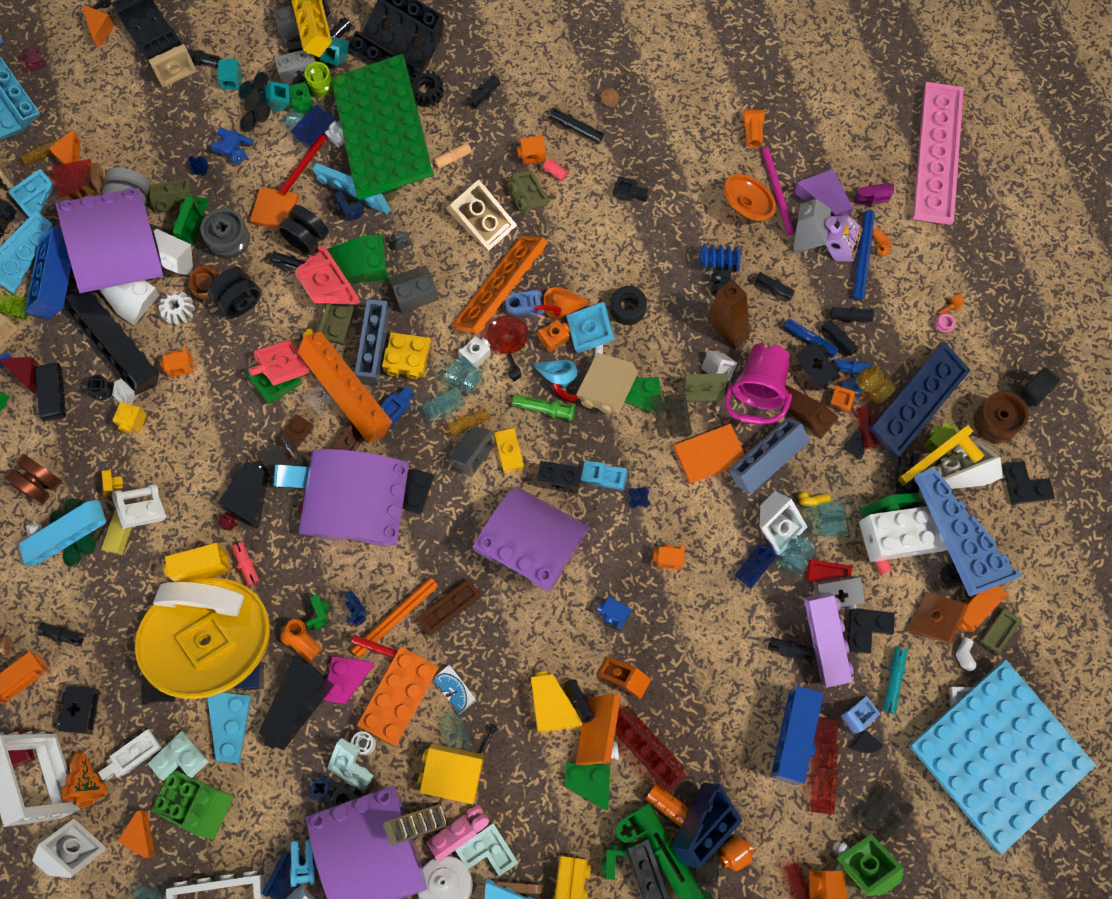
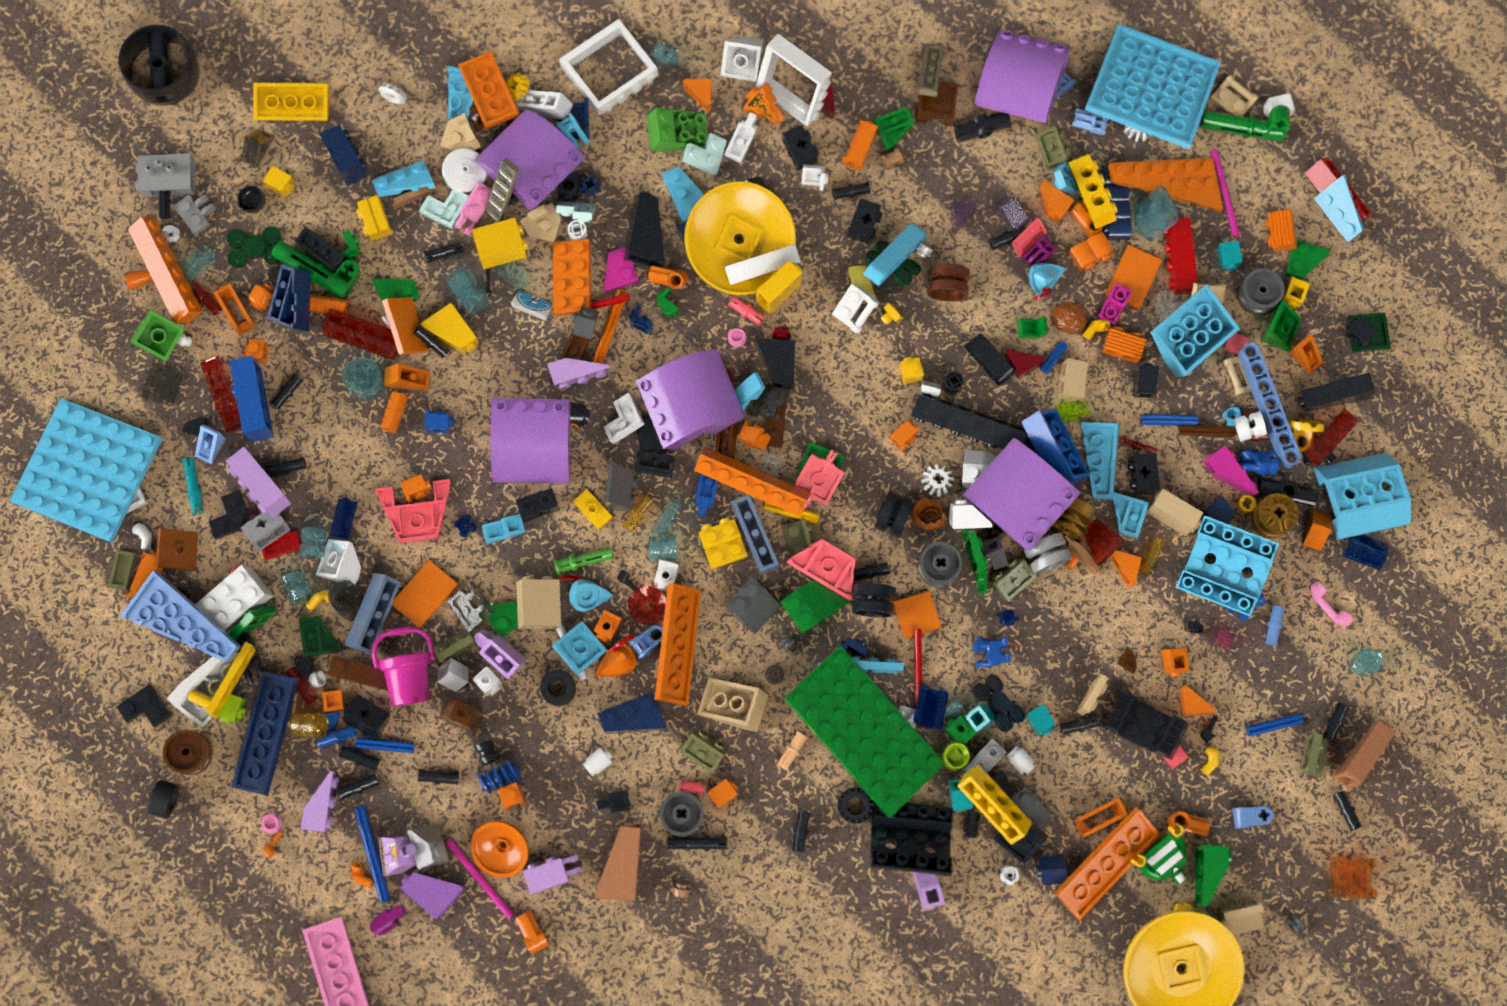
camera: 150 degrees right, 5 degrees up
(51, 80) = (1193, 627): none -> black tile
(81, 590) = (860, 231): none -> black brick
(84, 669) = (814, 176): none -> white bracket
(85, 62) = (1175, 661): none -> orange brick
(125, 85) = (1128, 661): none -> reddish brown tile
(167, 215) = (995, 553): none -> dark grey brick
(266, 53) = (1021, 760): none -> white brick
(272, 543) = (737, 337): none -> bright pink plate
(315, 432) = (754, 436): none -> orange brick
(396, 771) = (542, 223): none -> tan plate
(411, 634) = (585, 322): none -> dark grey brick
(424, 513) = (628, 419): none -> white plate
(426, 457) = (654, 464): none -> black hinge
(429, 222) = (774, 674): none -> clear smoke plate
(458, 589) = (570, 371): none -> lavender slope
(466, 547) = (579, 415): none -> black head
(514, 735) = (464, 289): none -> clear light blue brick
(515, 800) = (443, 251): none -> black pin
(574, 247) = (633, 716): none -> dark blue wedge
(577, 148) = (681, 802): none -> dark grey wheel
(625, 228) = (598, 761): none -> white brick
(651, 136) = (621, 870): none -> nougat slope
(654, 647) = (394, 412): none -> orange axle
(656, 699) = (357, 370): none -> clear light blue brick
(666, 358) = (499, 653): none -> lavender hinge
(685, 526) = (416, 520): none -> coral wing
(690, 338) = (487, 681): none -> white bracket
(714, 160) = (549, 874): none -> lavender hinge
(719, 220) = (511, 796): none -> orange window
(754, 731) = (286, 391): none -> black pin
(768, 791) = (258, 349): none -> orange brick
(773, 882) = (226, 293): none -> orange window
(789, 481) = (345, 599): none -> clear smoke piece
(832, 463) = (316, 638): none -> dark green wing
(849, 426) = (317, 679): none -> white hinge
(897, 312) = (318, 810): none -> lavender slope

